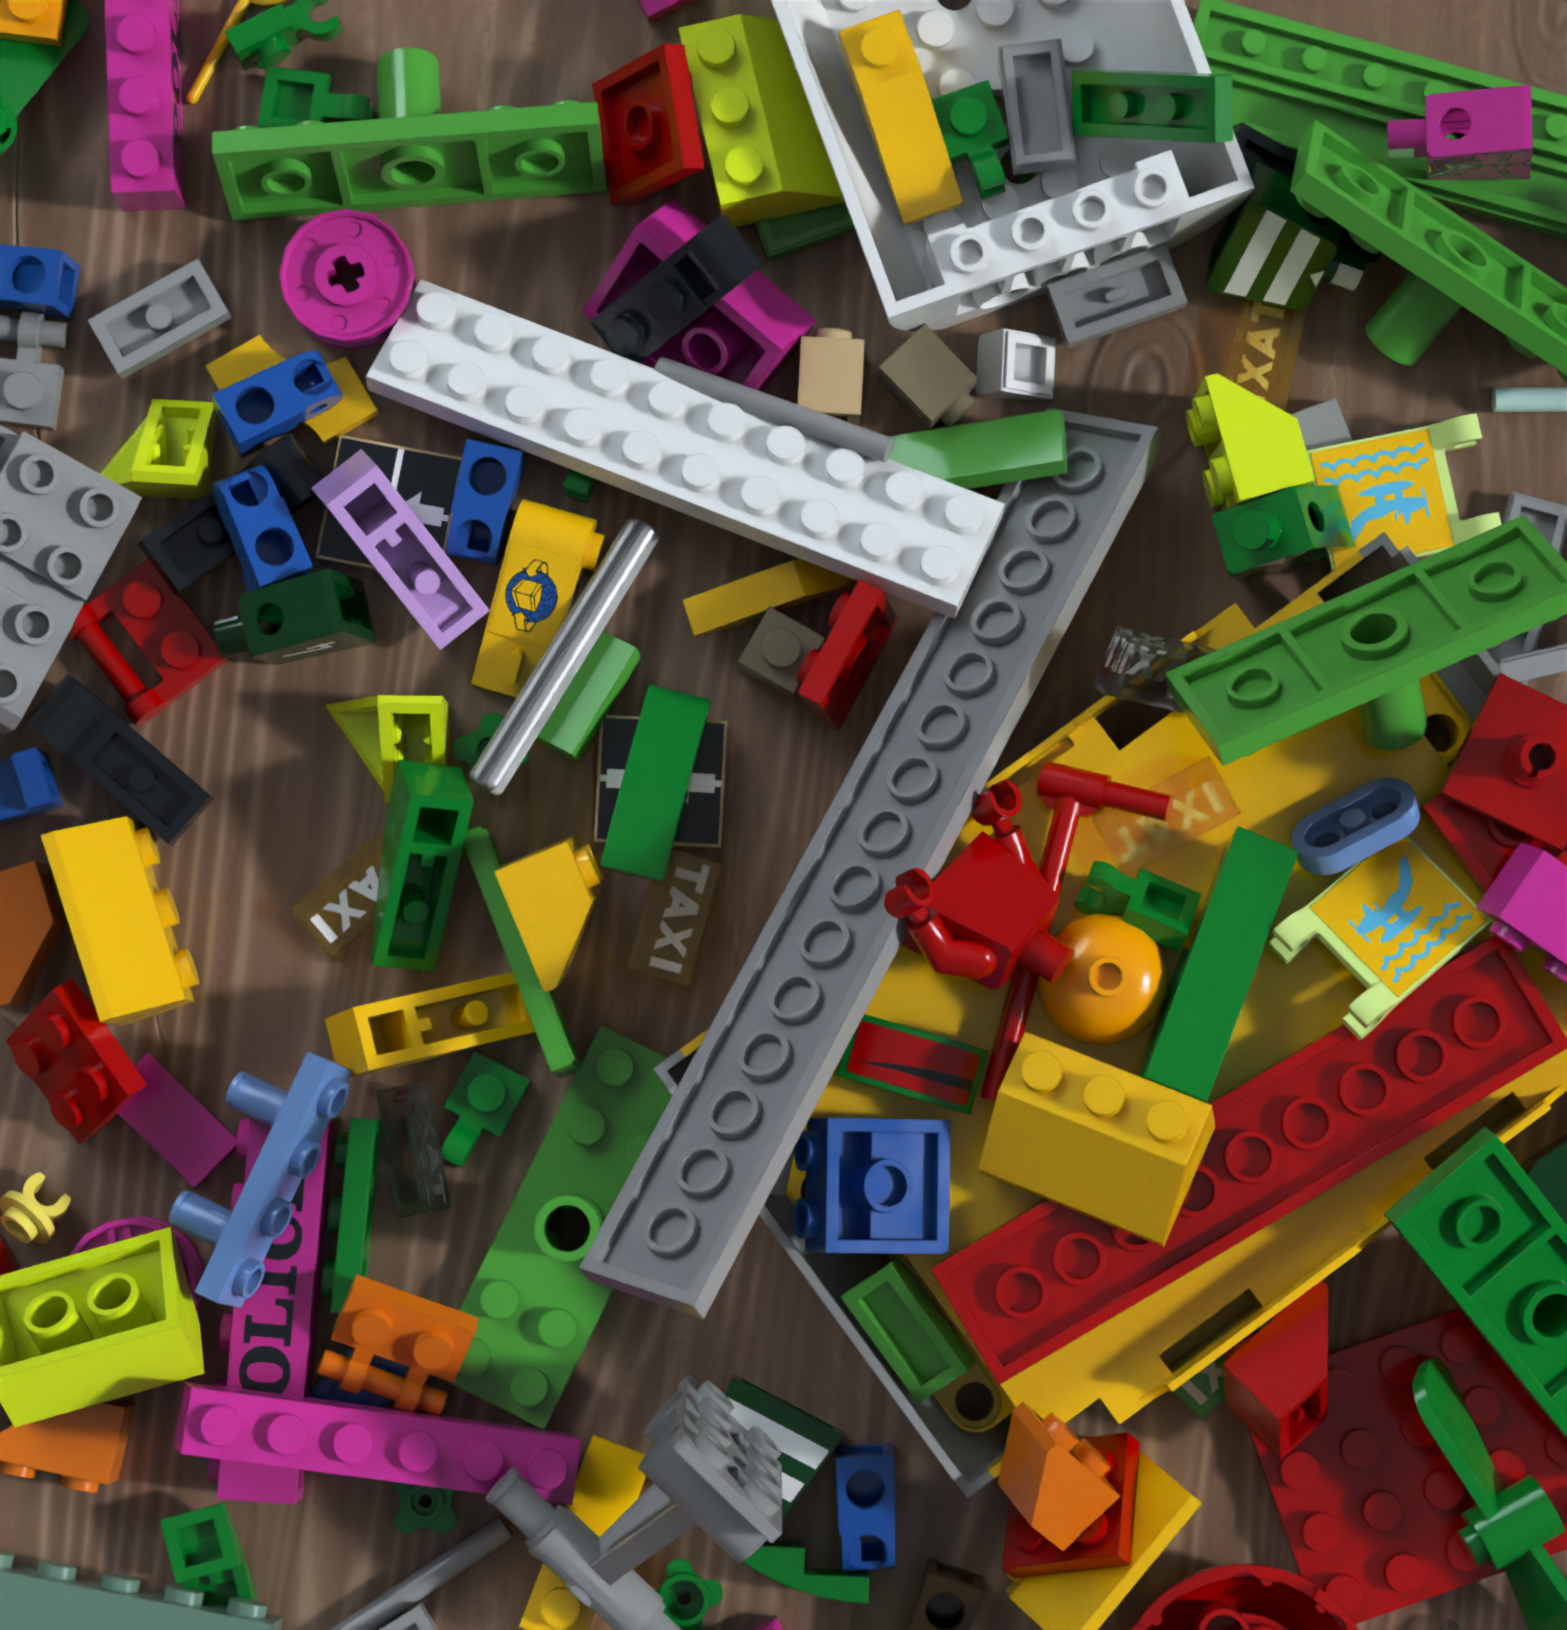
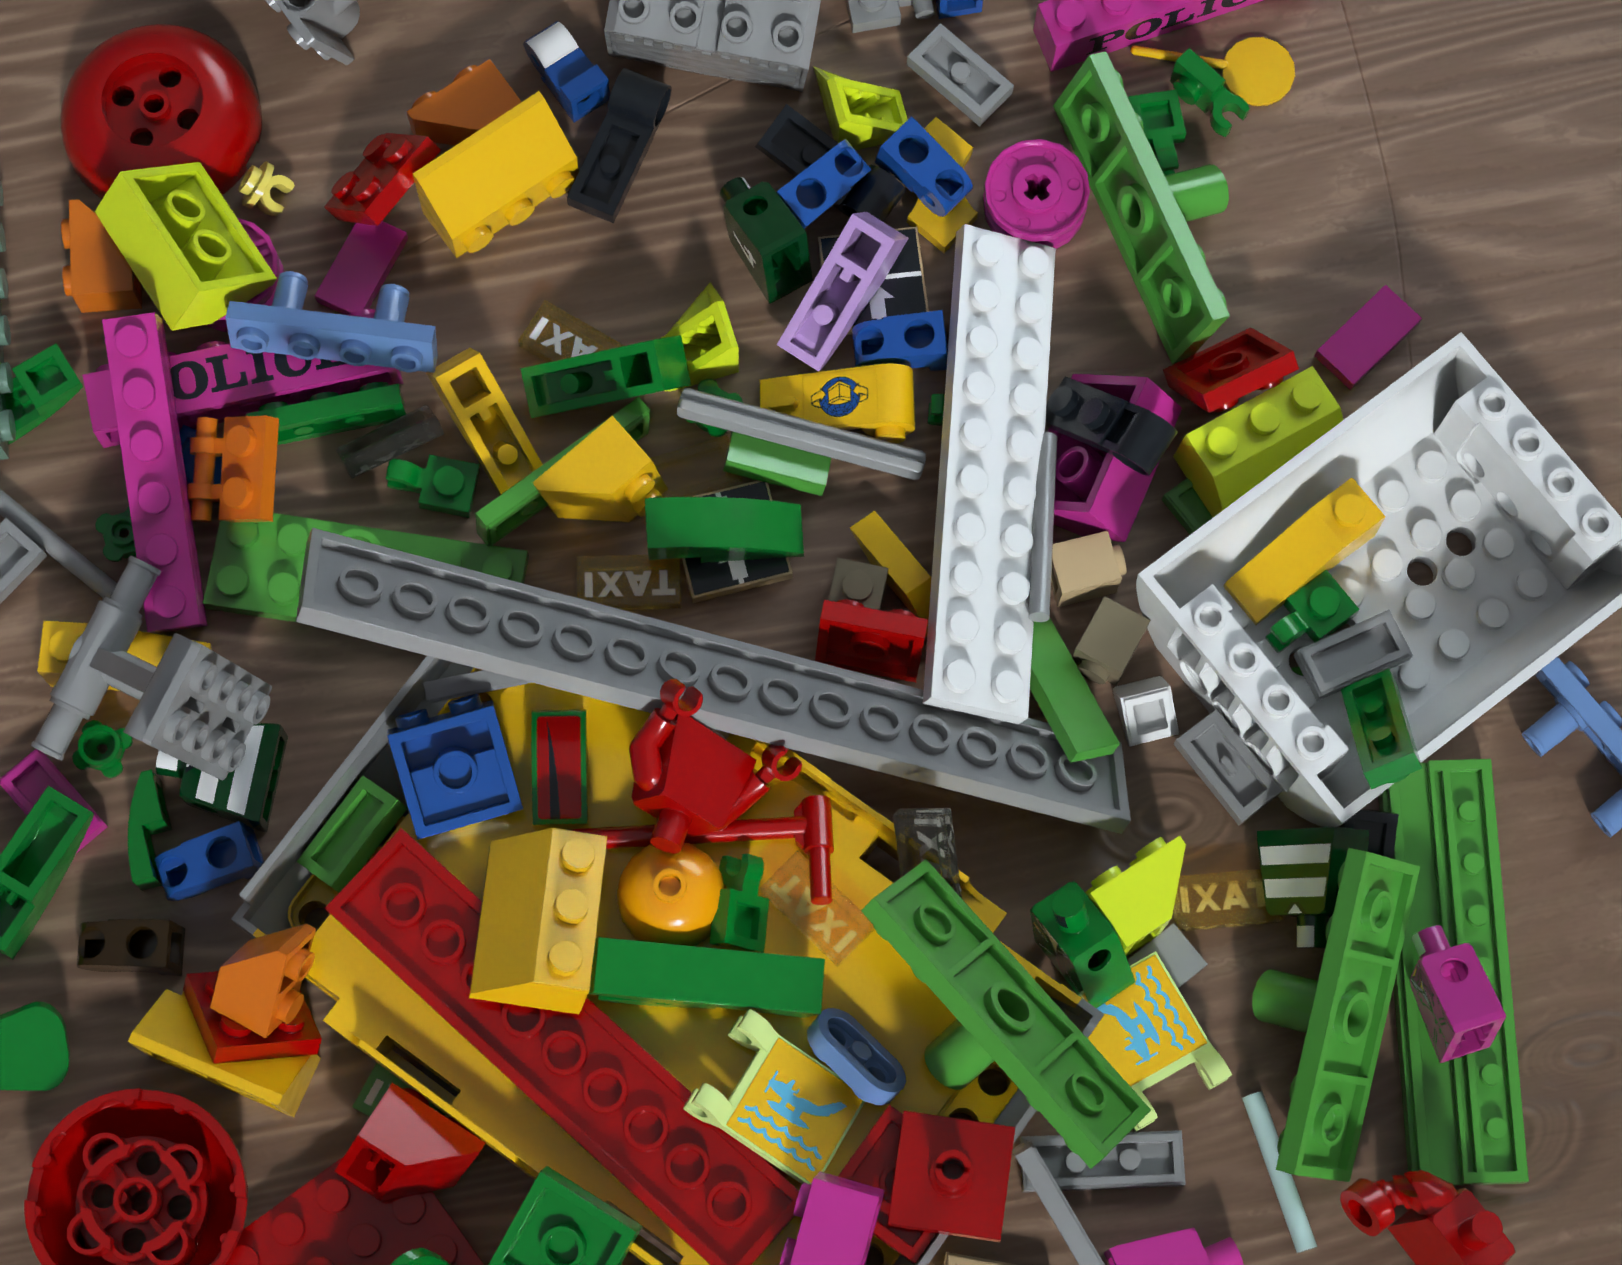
camera: 70 degrees right, 10 degrees down
(161, 628) = (728, 148): red plate -> none

